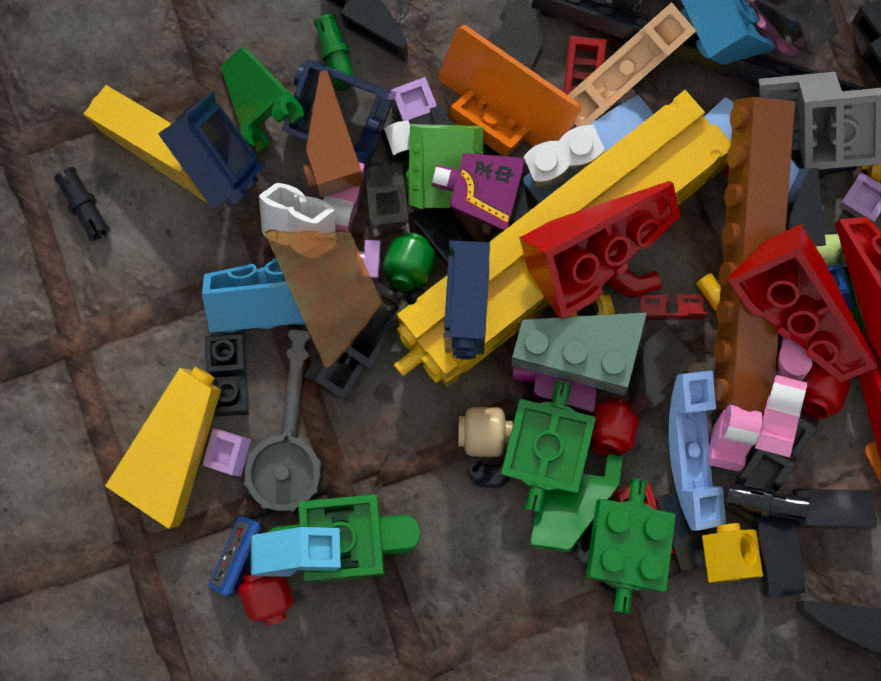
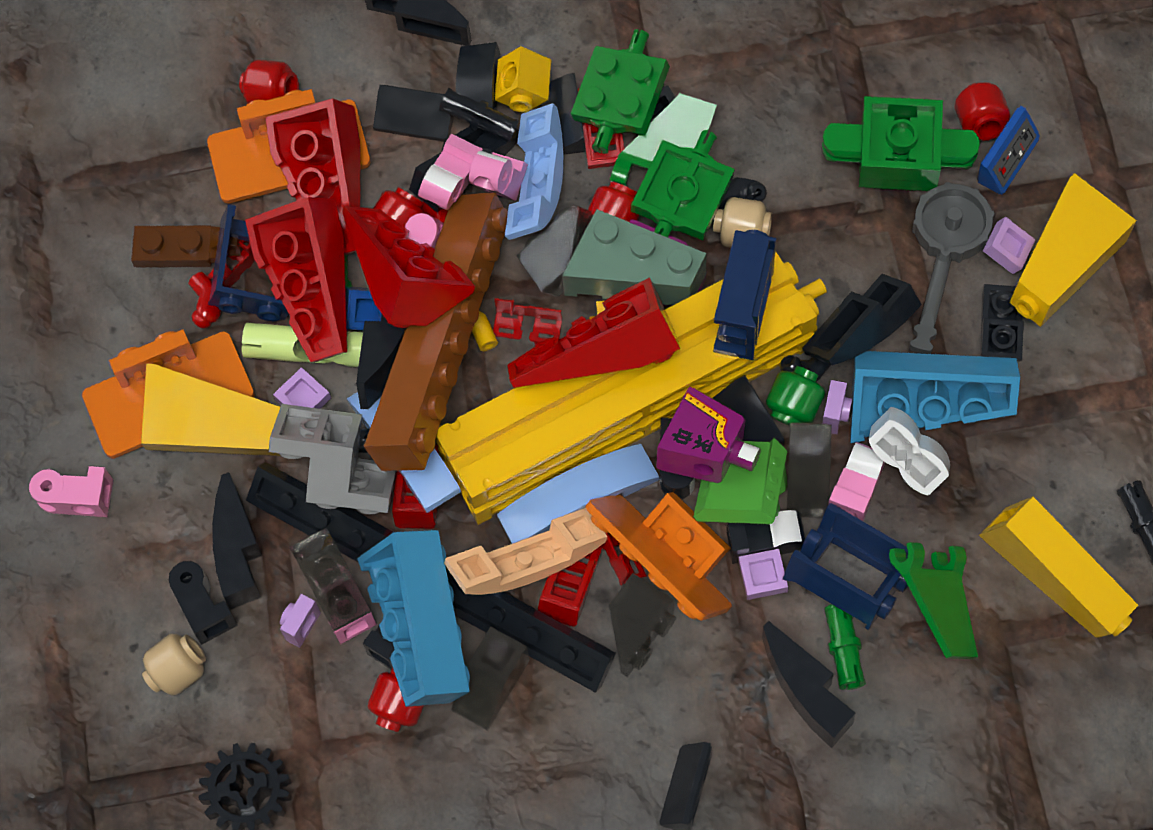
camera: 170 degrees left, 10 degrees down
(212, 152) = (1021, 515): dark blue window -> none
(295, 549) = (942, 114): medium azure slope -> none
(327, 286) = (886, 357): clear orange wing -> none
(329, 147) = (864, 503): dark orange slope -> none
(557, 161) = (603, 464): white brick -> none

